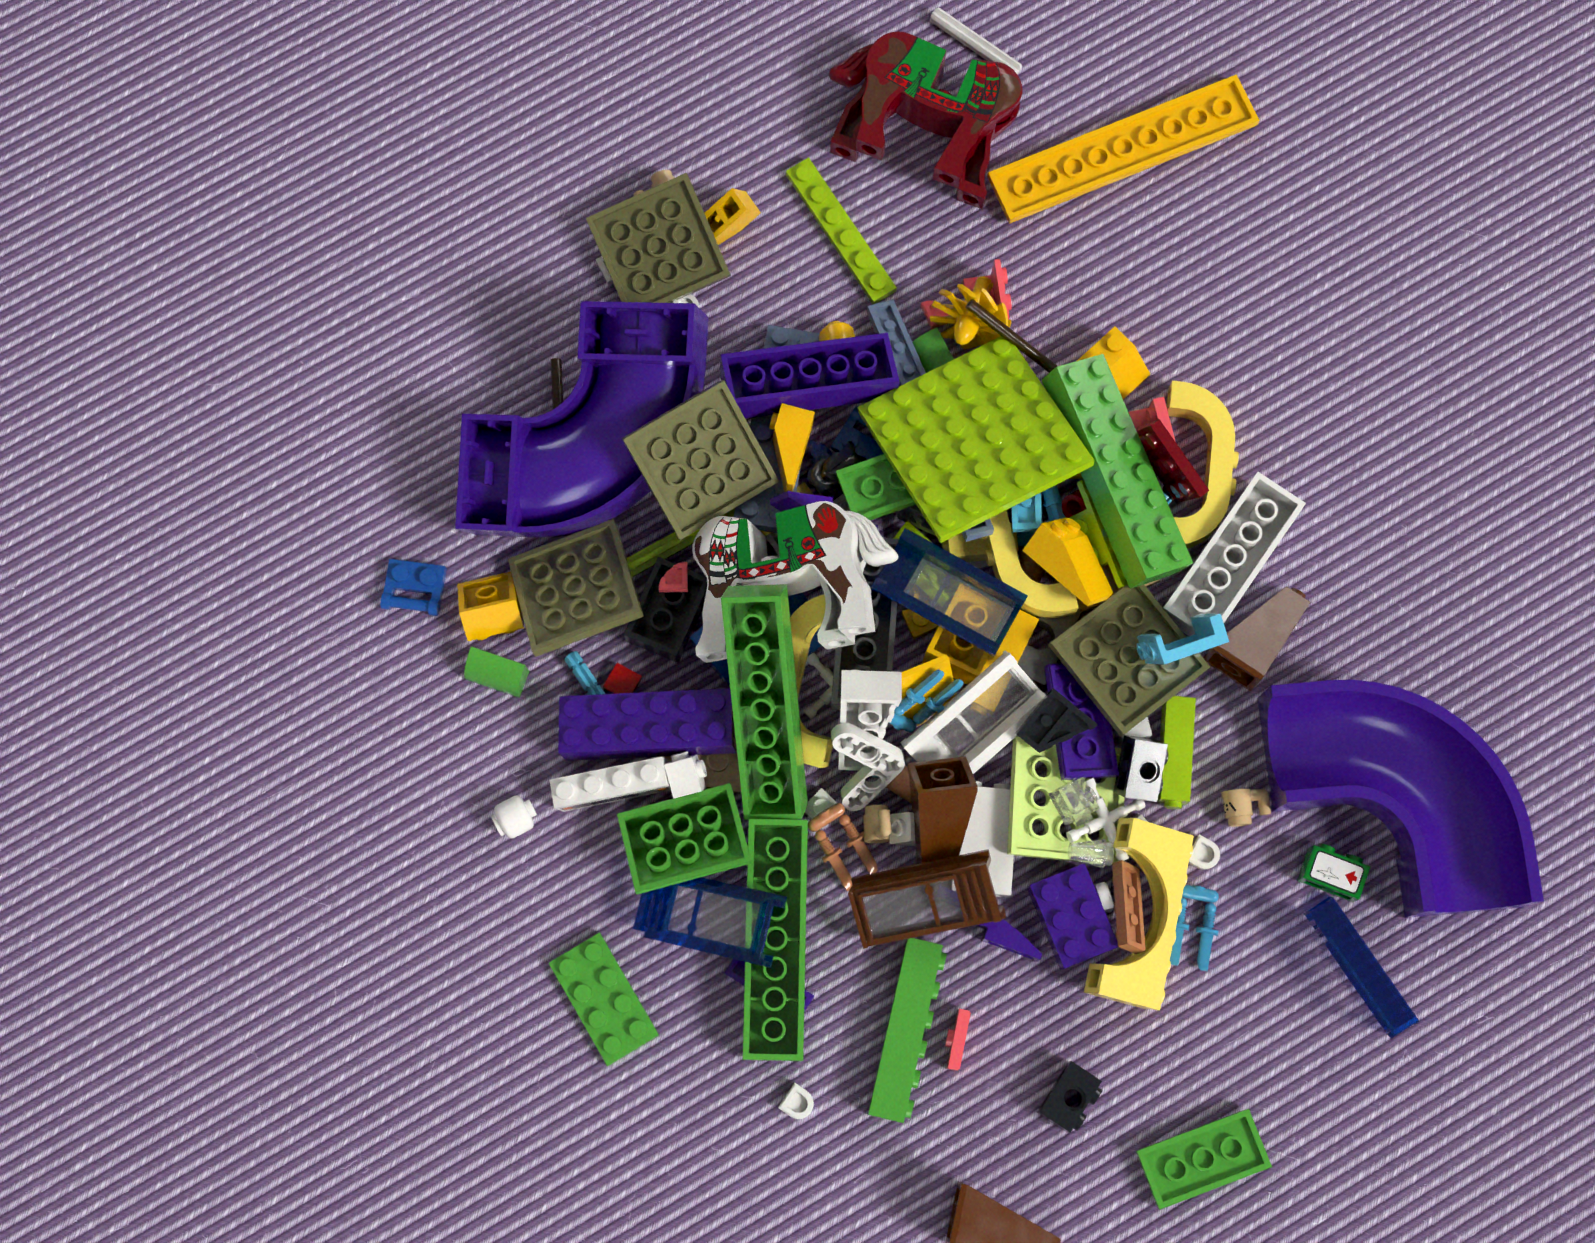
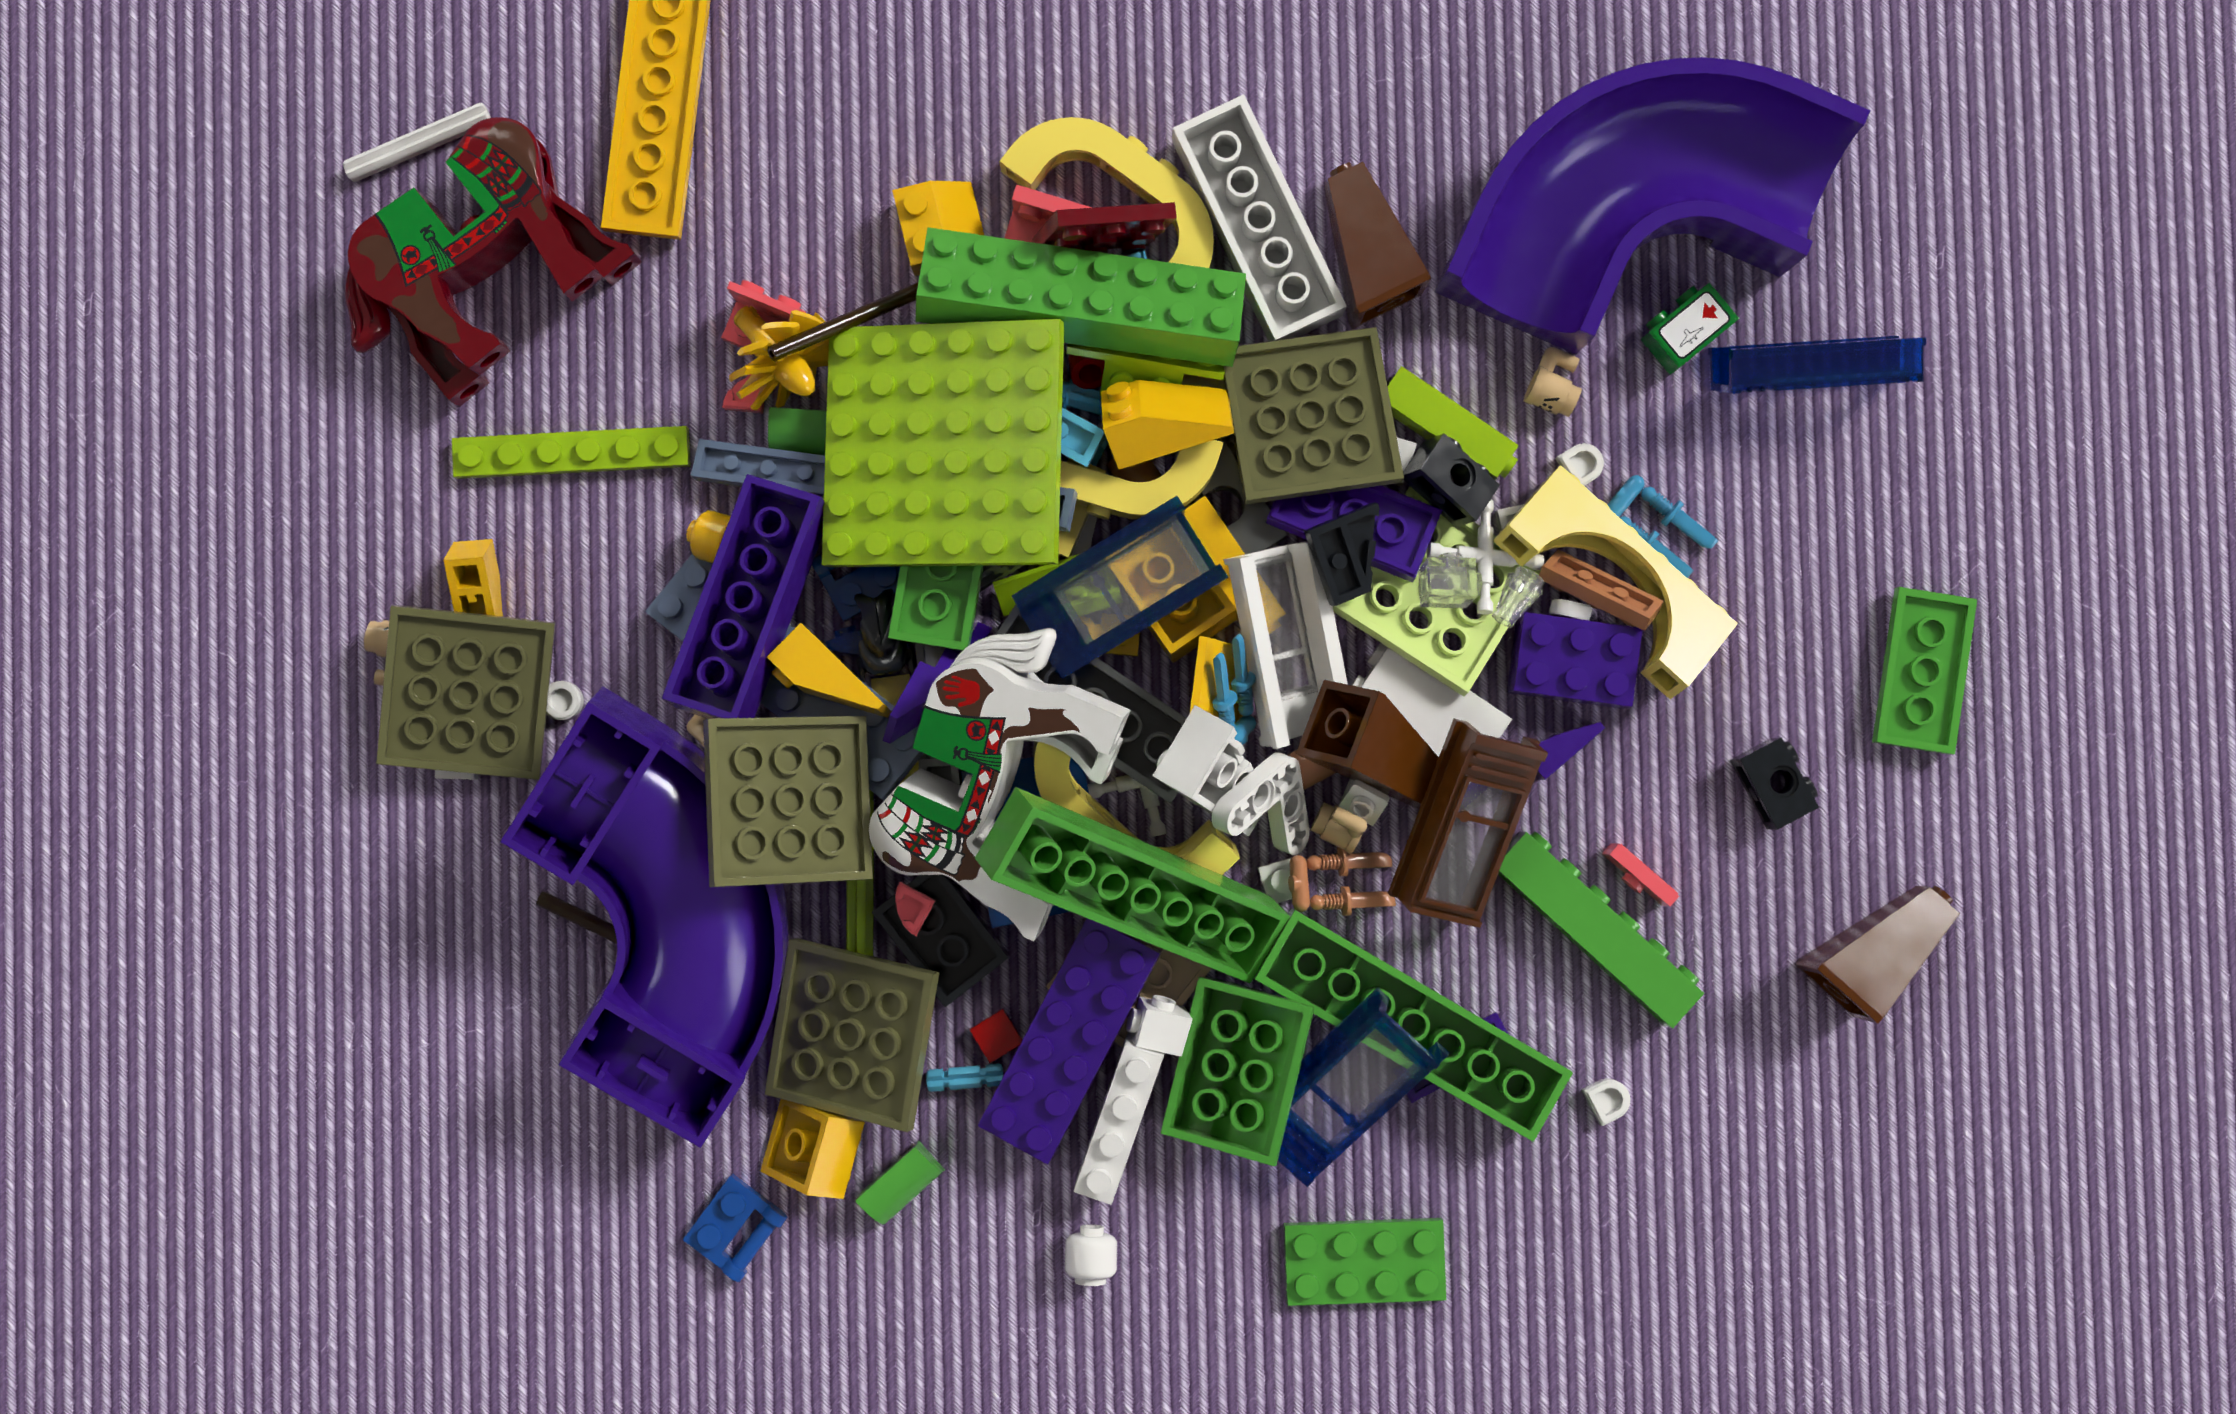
camera: 65 degrees left, 10 degrees up
(1208, 634) = (1348, 317): medium azure panel -> none

